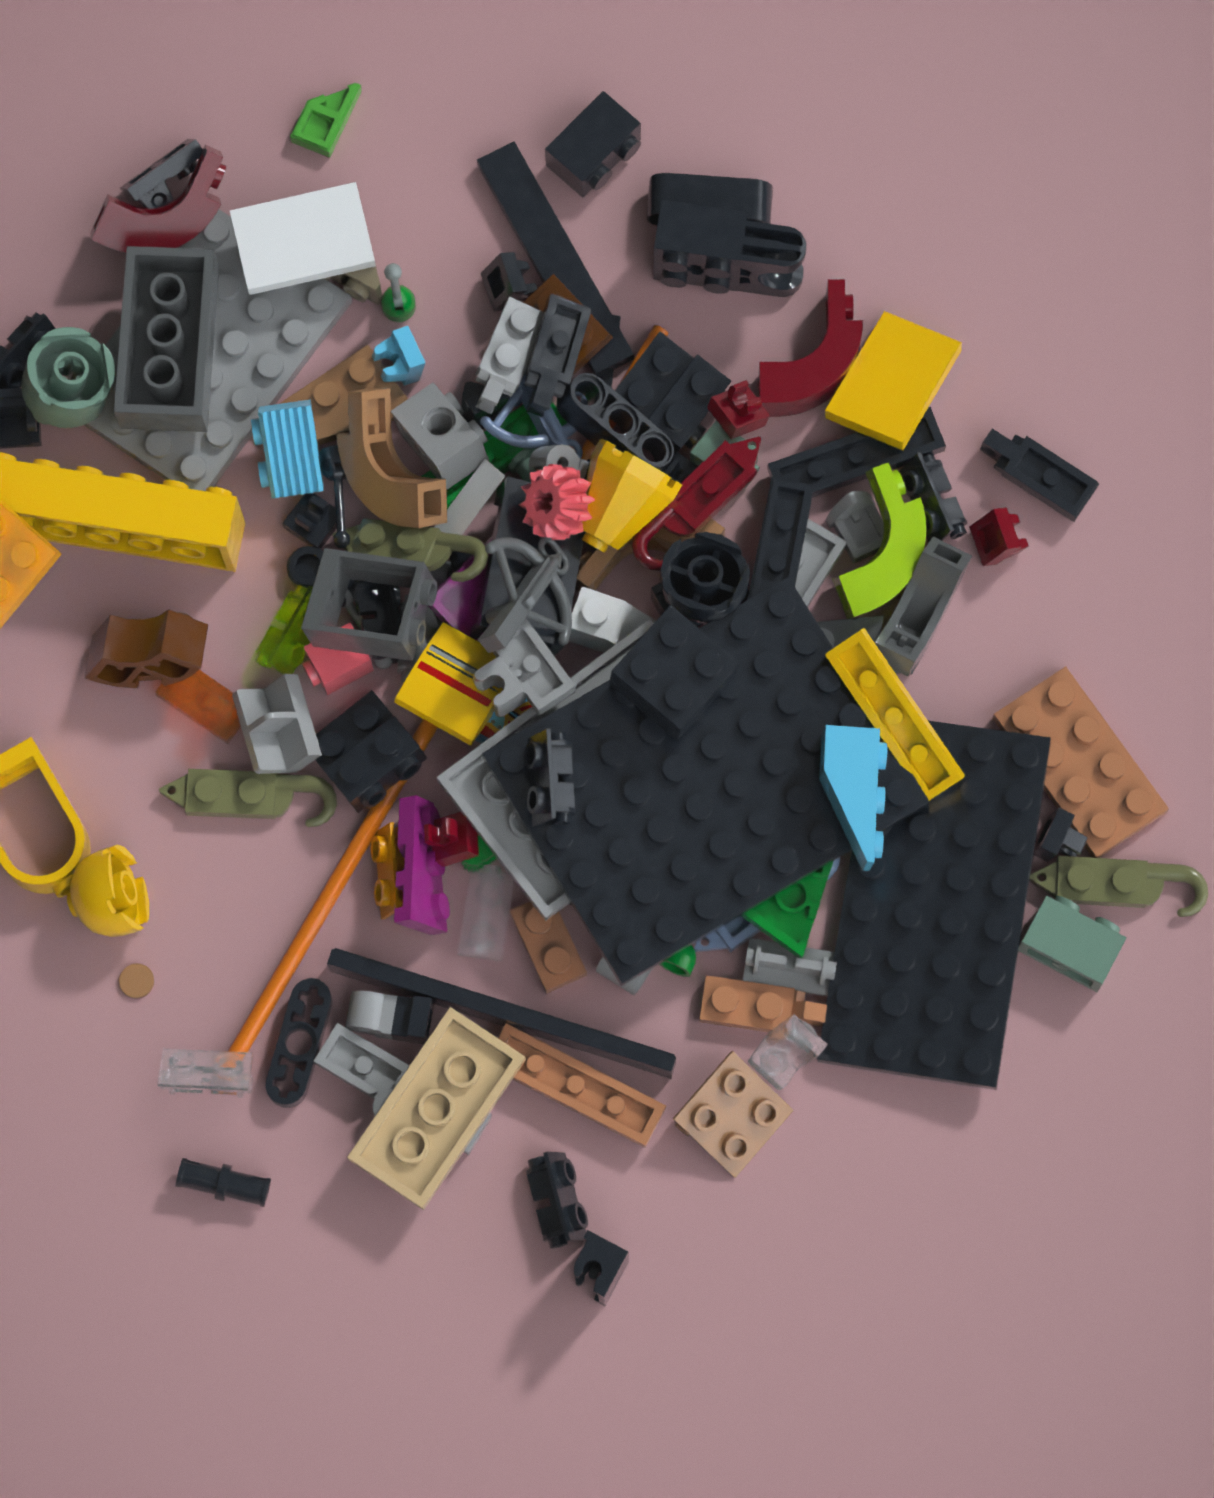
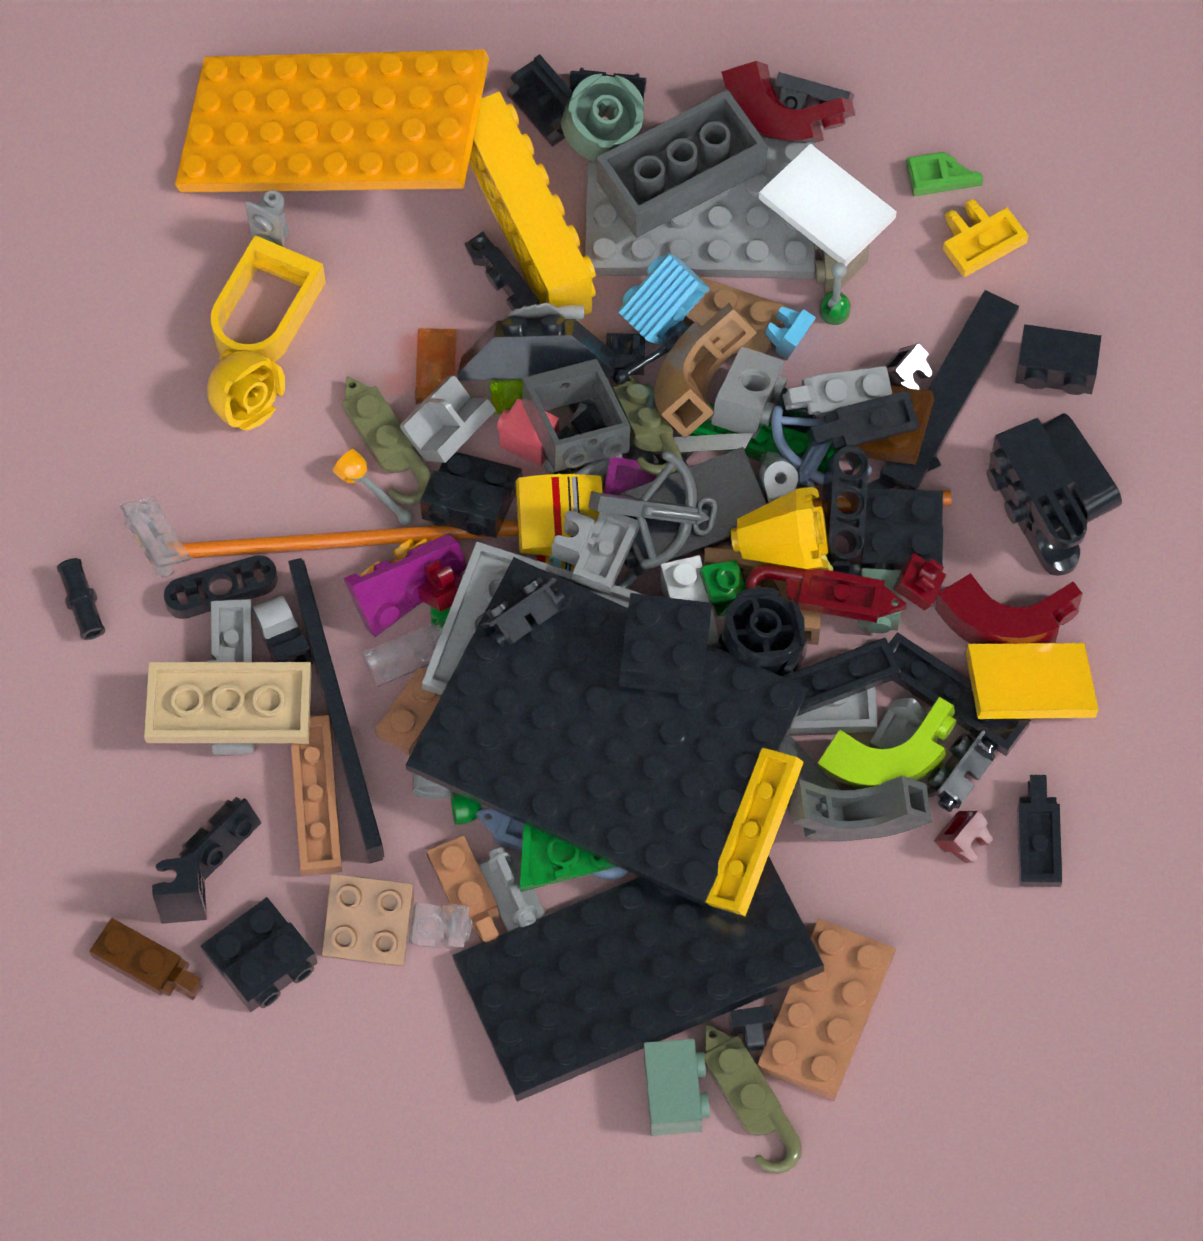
camera: 55 degrees right, 10 degrees down
(136, 981) = (195, 452): medium nougat piece -> none
(146, 650) = (442, 299): reddish brown brick -> none
(156, 577) = (500, 272): none -> black hinge
(243, 551) = (538, 312): none -> light grey hand
(262, 600) = (531, 347): none -> black wedge
(263, 843) = (353, 468): none -> hinge
(427, 126) = (983, 242): none -> yellow hinge
(556, 502) = (742, 486): coral gear -> none
(624, 583) = (722, 584): none -> green bracket
(635, 1344) = (144, 961): none -> reddish brown hinge
(701, 1233) = (260, 955): none -> black plate
(850, 780) = (677, 822): medium azure slope -> none

